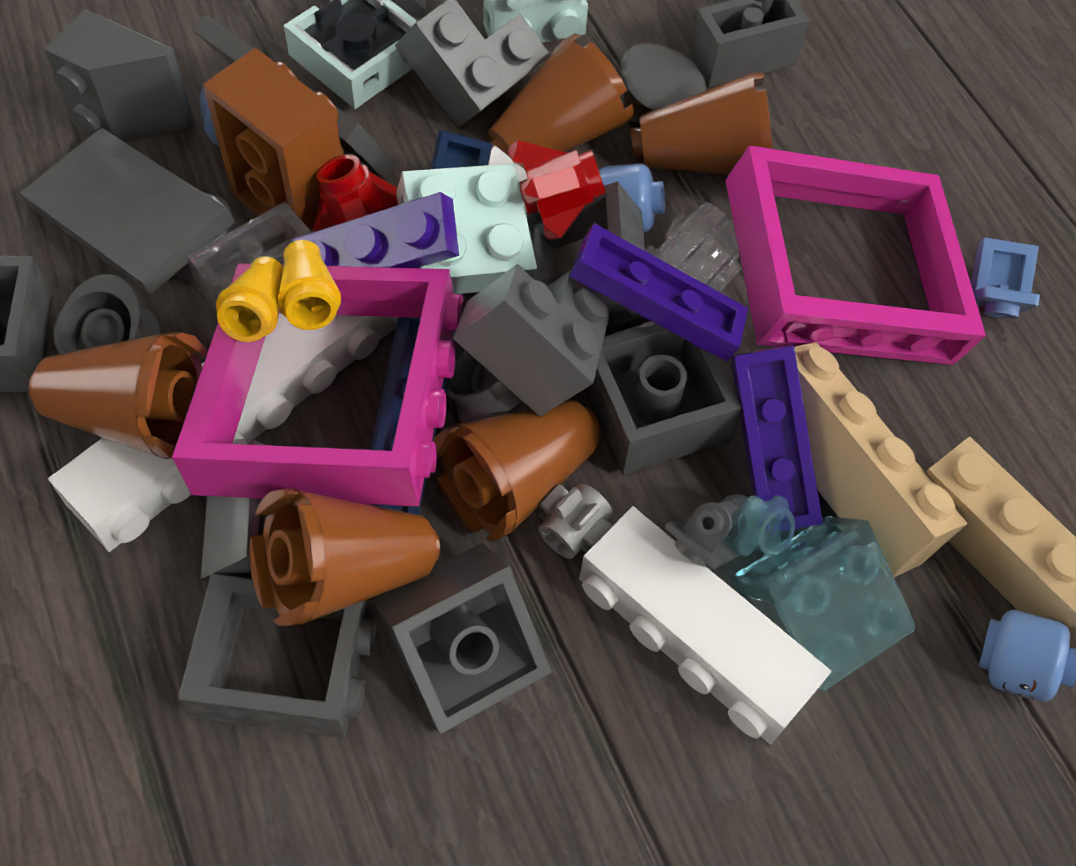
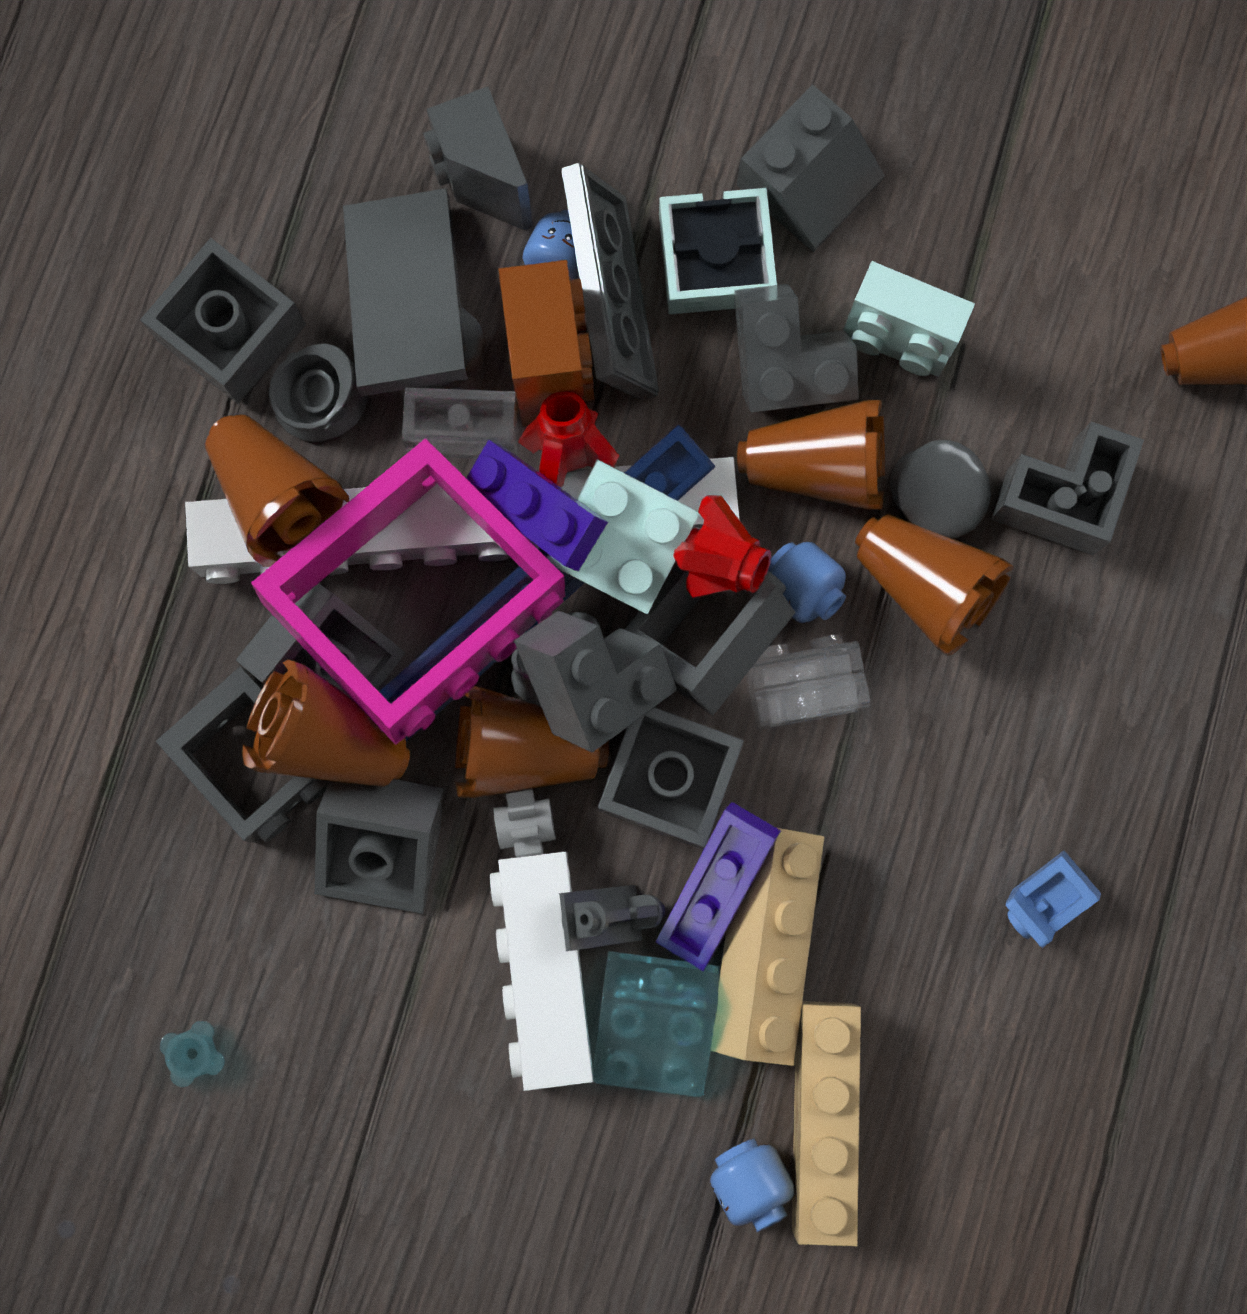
camera: 45 degrees right, 20 degrees up
(249, 304) = (397, 495): yellow cone -> none
(307, 288) = (443, 514): yellow cone -> none
(660, 292) = (711, 716): dark purple plate -> none
(764, 526) = (649, 943): clear light blue plate -> none
(846, 326) = (847, 729): dark pink window -> none

